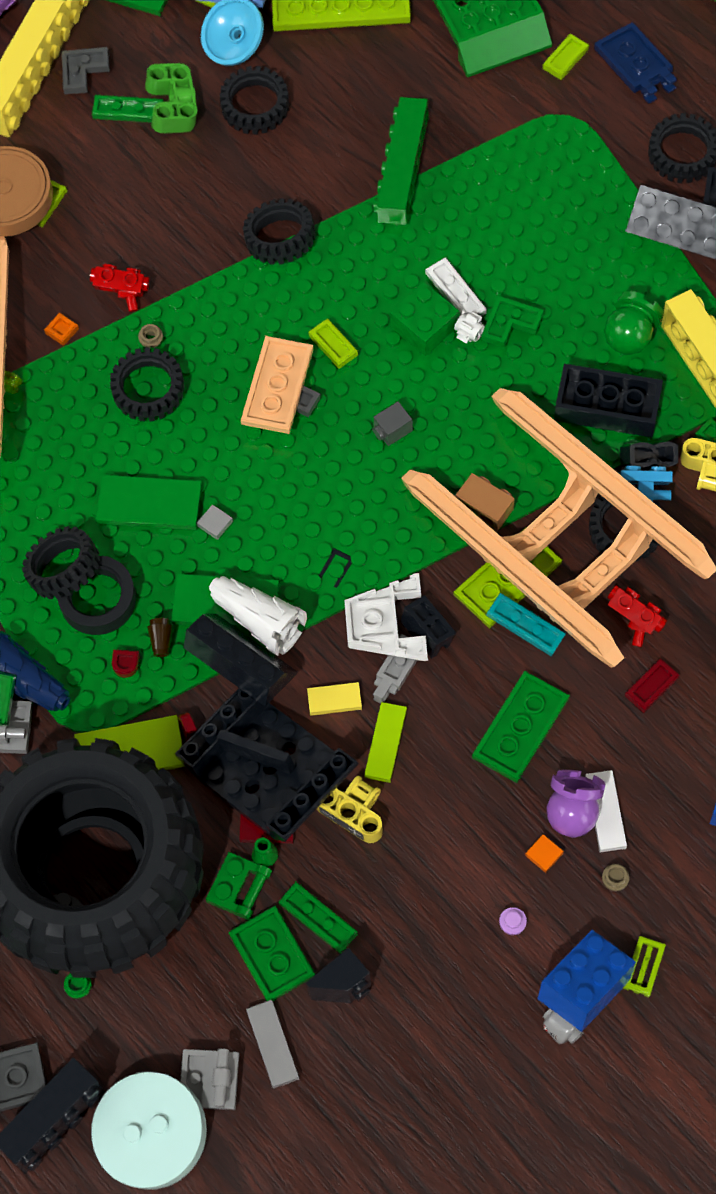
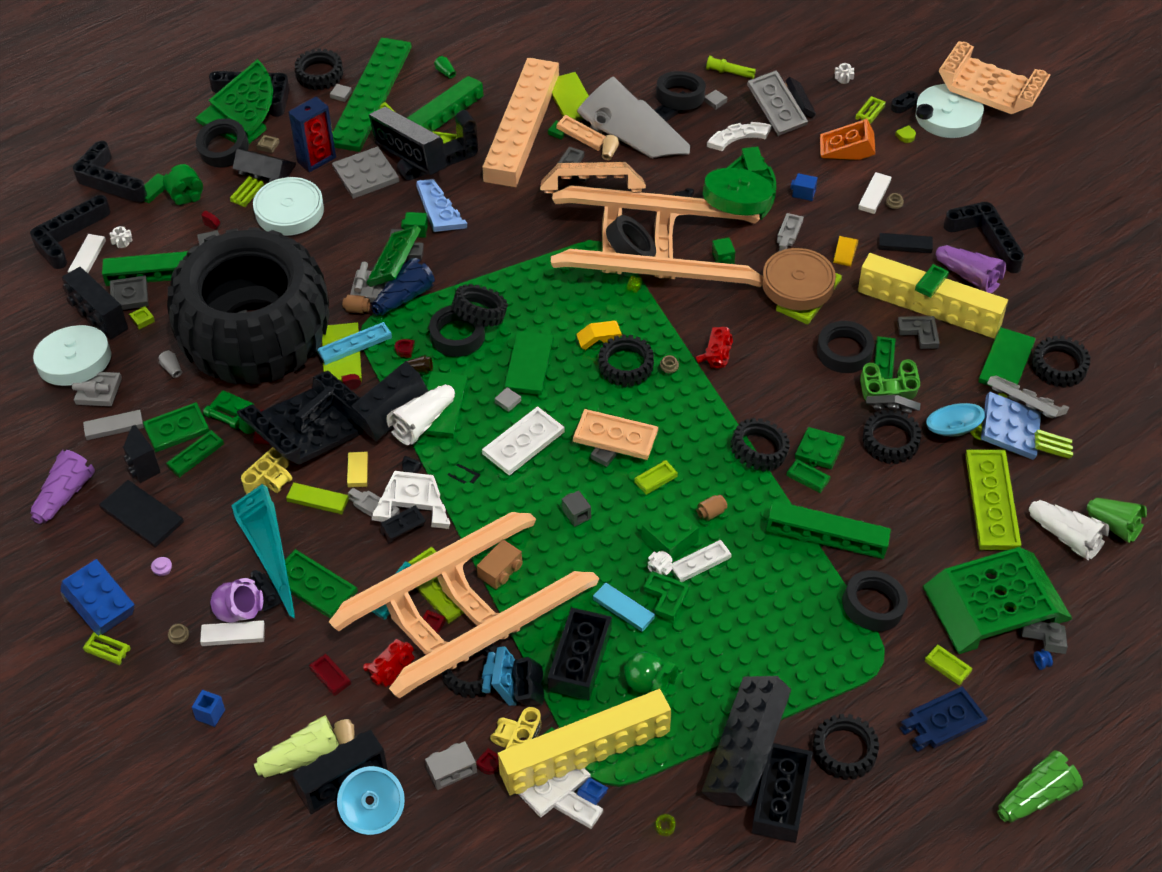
camera: 90 degrees right, 15 degrees down
(29, 34) = (931, 280): none -> green tile
(40, 736) = (356, 304): none -> medium nougat brick
(61, 329) = (684, 319): orange tile -> none
(62, 1049) = (142, 317): none -> lime tile
(102, 418) = (598, 331): none -> yellow slope
(104, 123) = (850, 330): none -> black tyre
(110, 718) = (354, 343): none -> medium azure tile
(158, 983) = (170, 363): none -> light grey cone
(212, 87) = (893, 402): none -> dark grey plate
(273, 174) = (819, 448): none -> green plate
(286, 494) = (523, 440): none -> white plate
(315, 187) = (808, 476): none -> green tile
(326, 634) = (411, 465): none -> black tile
(381, 278) = (711, 507): none -> medium nougat brick
(395, 1083) = (65, 479): none -> medium lavender cone
(426, 969) = (141, 513): none -> black tile
(437, 803) = (259, 523): none -> teal plate
(491, 96) = (883, 583): none -> black tyre
(530, 364) = (623, 607): none -> medium azure tile
(538, 783) = (270, 596): none -> black hinge
(544, 853) = (206, 589): orange tile -> none
(565, 573) = (434, 620): none -> dark red tile

